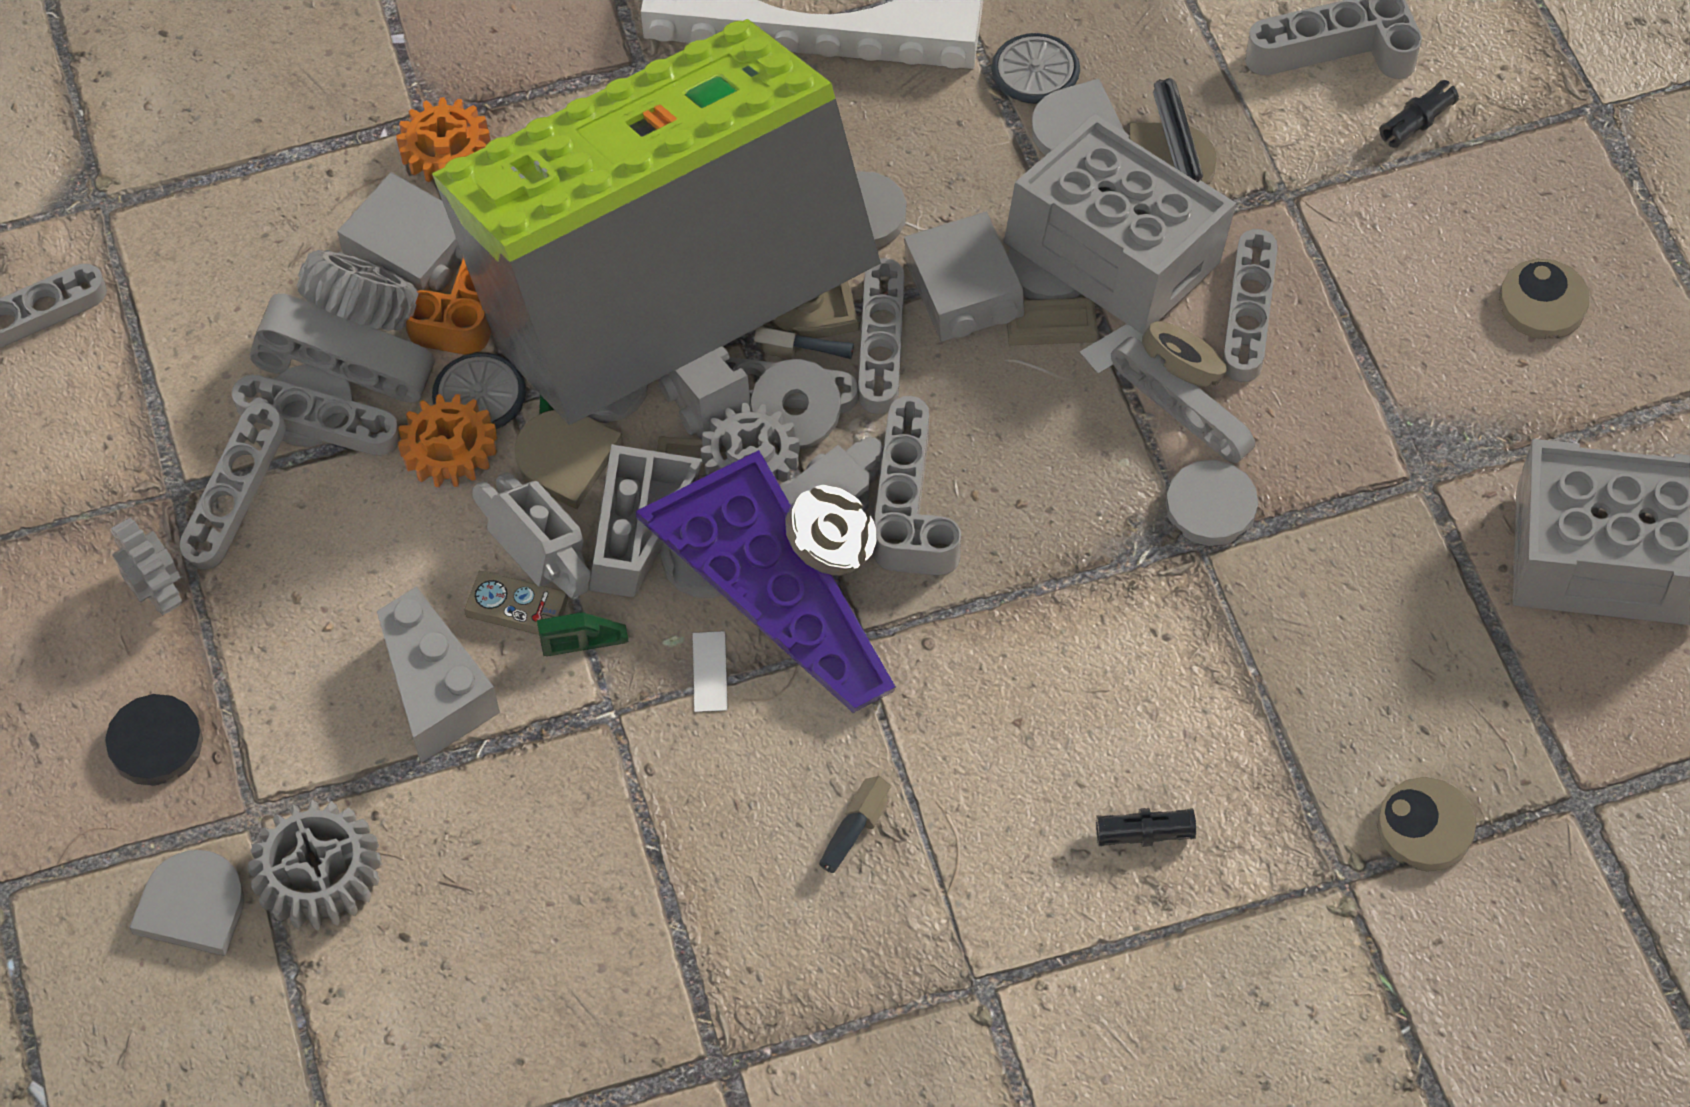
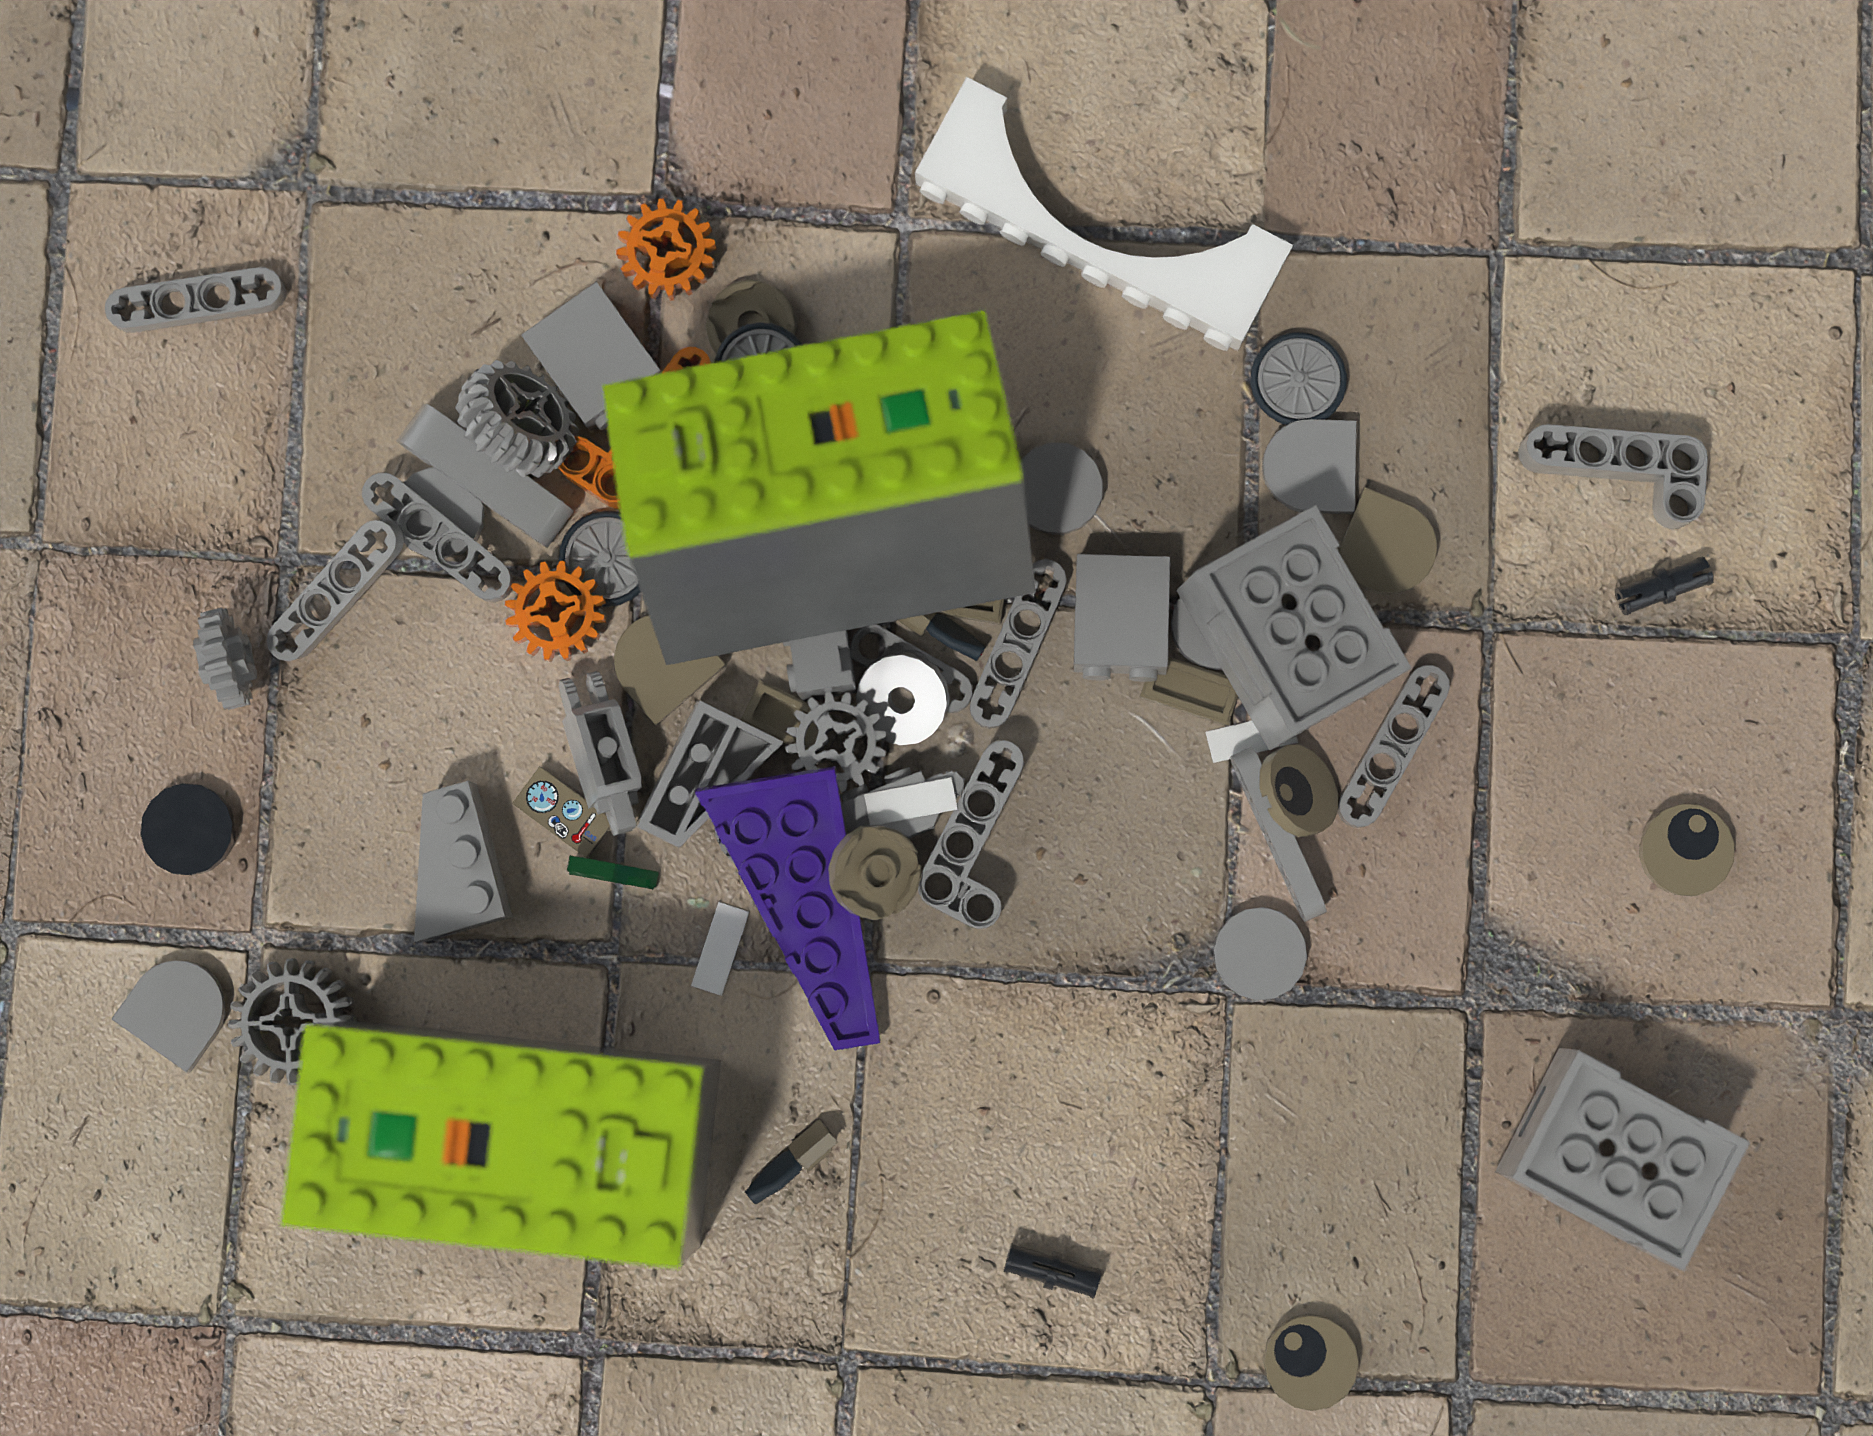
camera: 25 degrees right, 25 degrees up
(571, 844) = (501, 1143): none -> lime piece
(841, 468) = (910, 801): none -> white sticker
(1177, 128) = (1405, 525): black axle -> none

